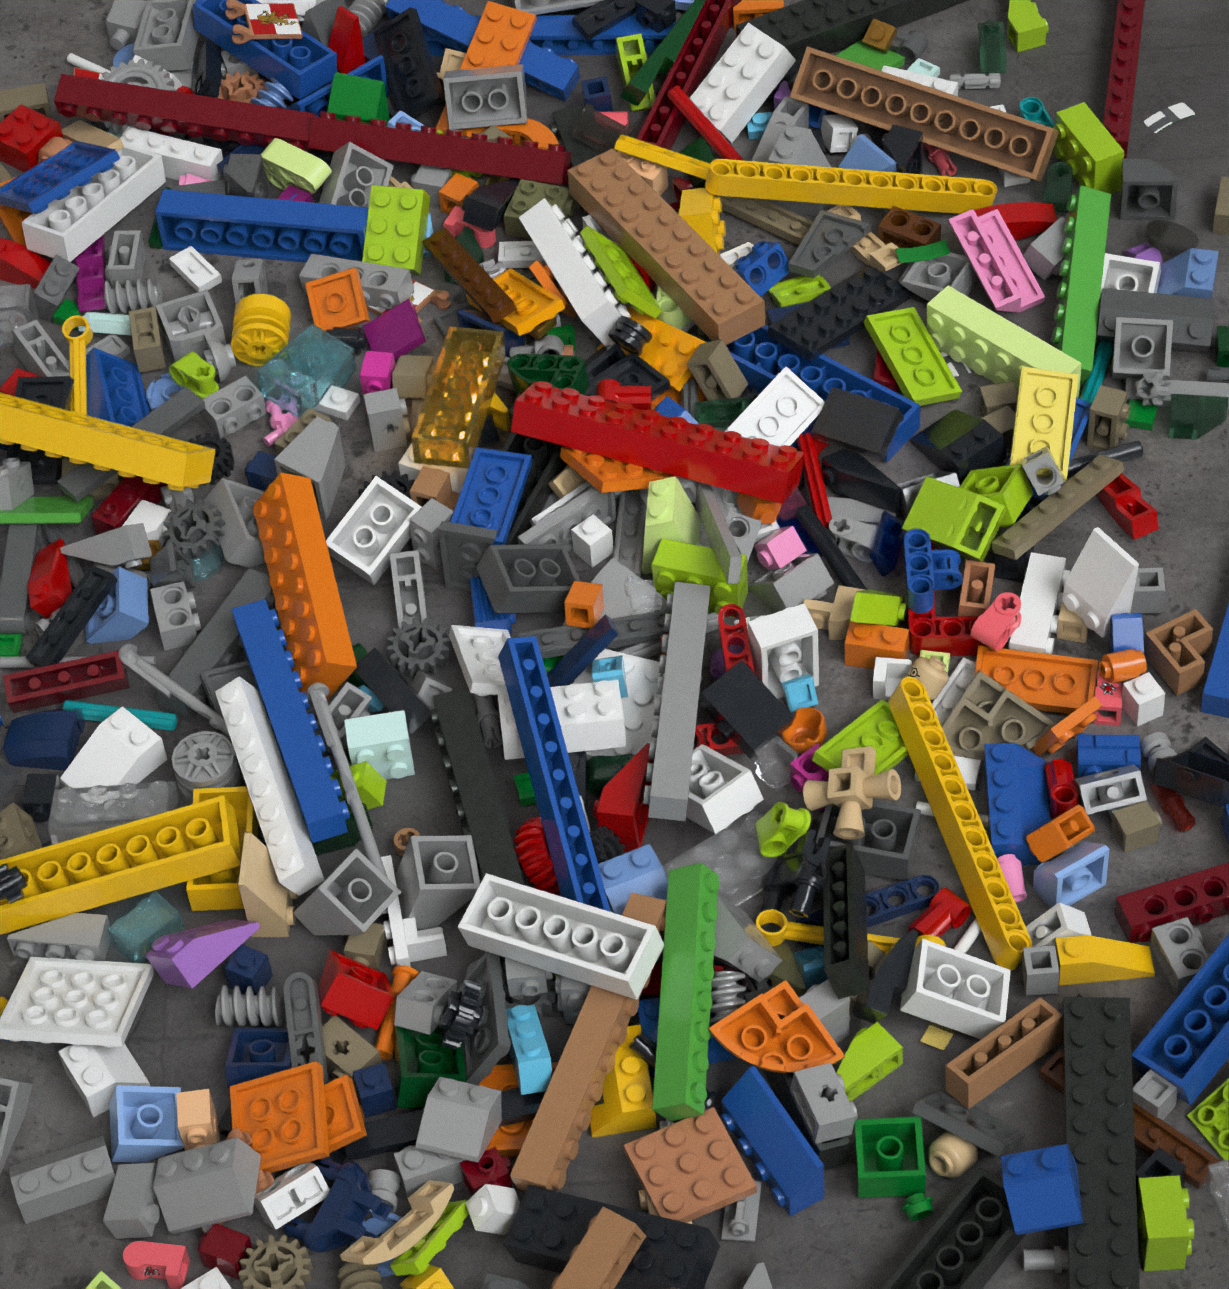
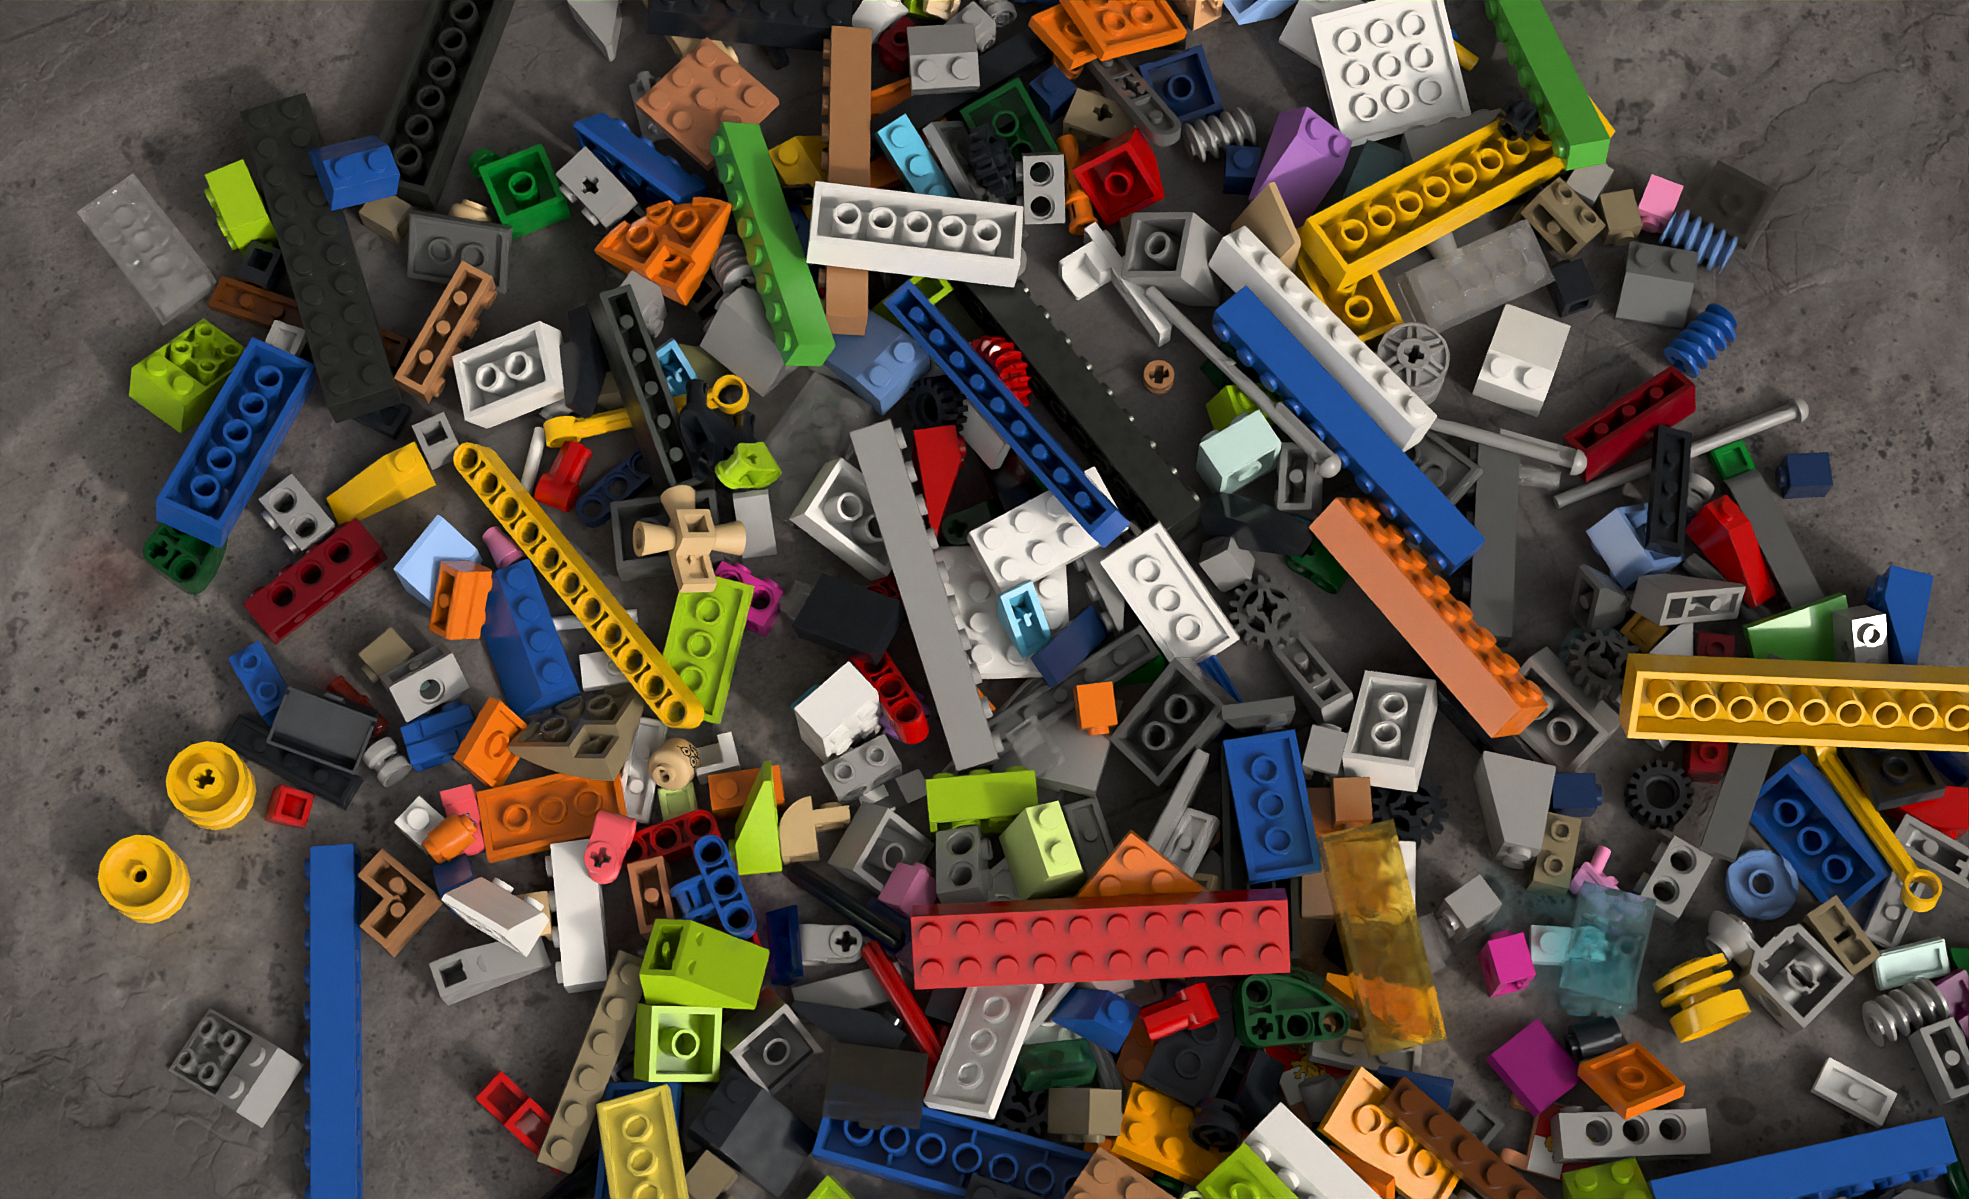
camera: 155 degrees right, 20 degrees up
(44, 739) = (1613, 361): dark blue slope -> none
(101, 712) = (1550, 420): teal axle -> none
(174, 615) = (1572, 554): light grey brick -> none
(194, 374) = (1749, 902): lime piece -> none
(249, 278) = (1758, 1064): light grey torso -> none
(413, 375) = (1469, 993): dark tan brick -> none
(436, 878) = (1092, 308): light grey slope -> none
(592, 540) = (1137, 819): white brick -> none
(718, 533) = (964, 820): light grey tile -> none
(806, 730) = (785, 651): orange hair -> none
(869, 1059) = (583, 281): lime slope -> none
(1038, 460) = (621, 1082): light grey brick -> none
(1057, 923) = (435, 494): white slope -> none
(1061, 786) = (482, 678): red piece -> none

